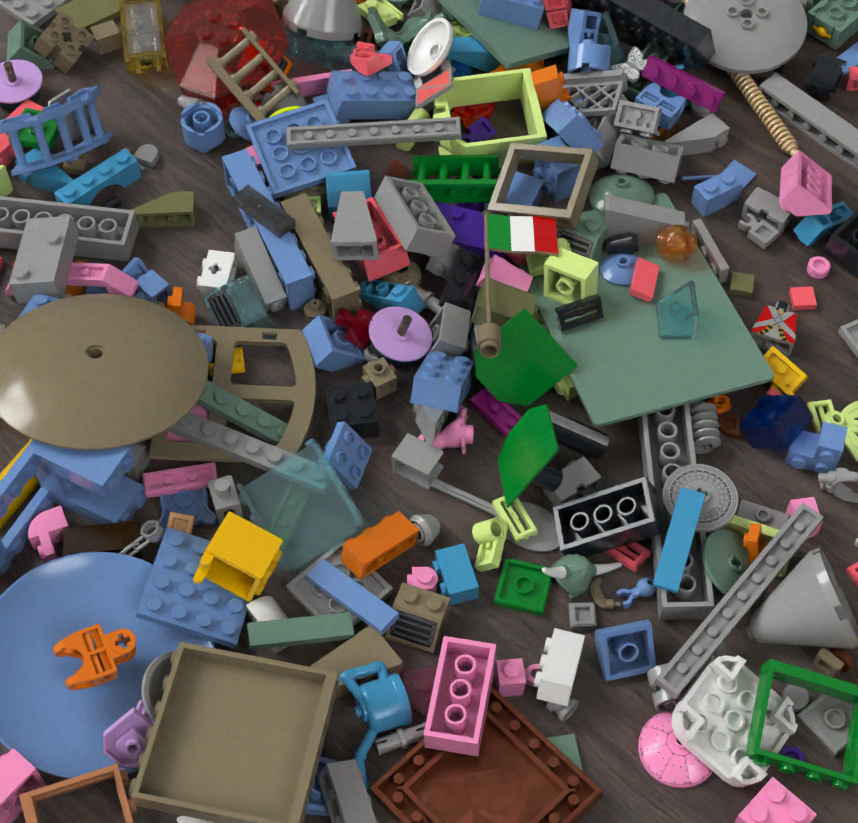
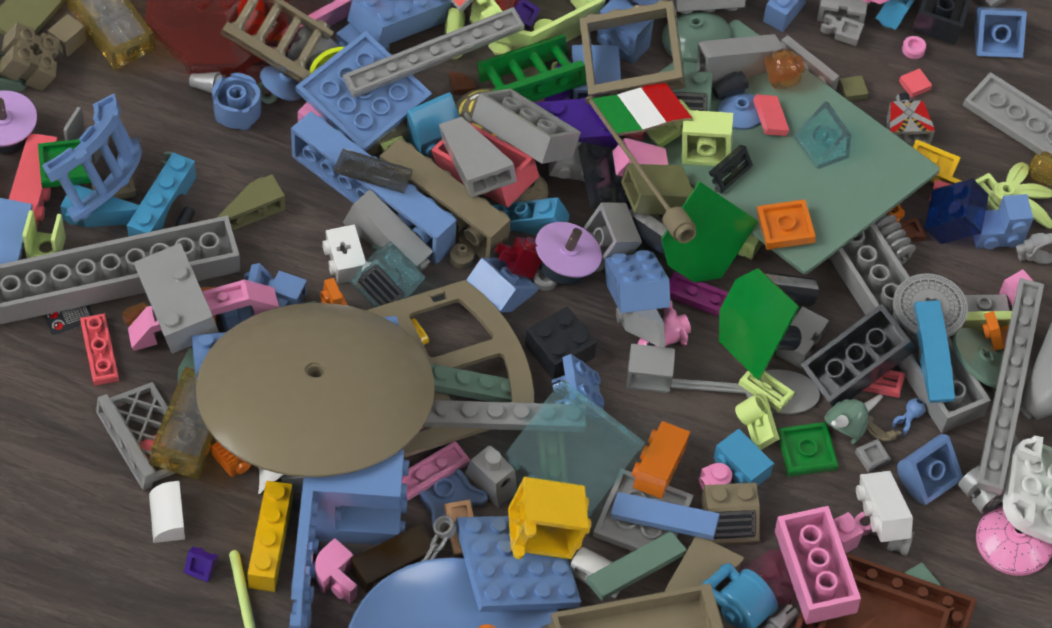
camera: 30 degrees left, 0 degrees up
(147, 155) = (191, 149): light grey tile -> none
(382, 377) = (568, 295): dark tan brick -> none
(428, 299) = (575, 208): light grey pin -> none
(428, 528) = (696, 426): light grey cone -> none
(599, 376) = (786, 224): none -> orange plate

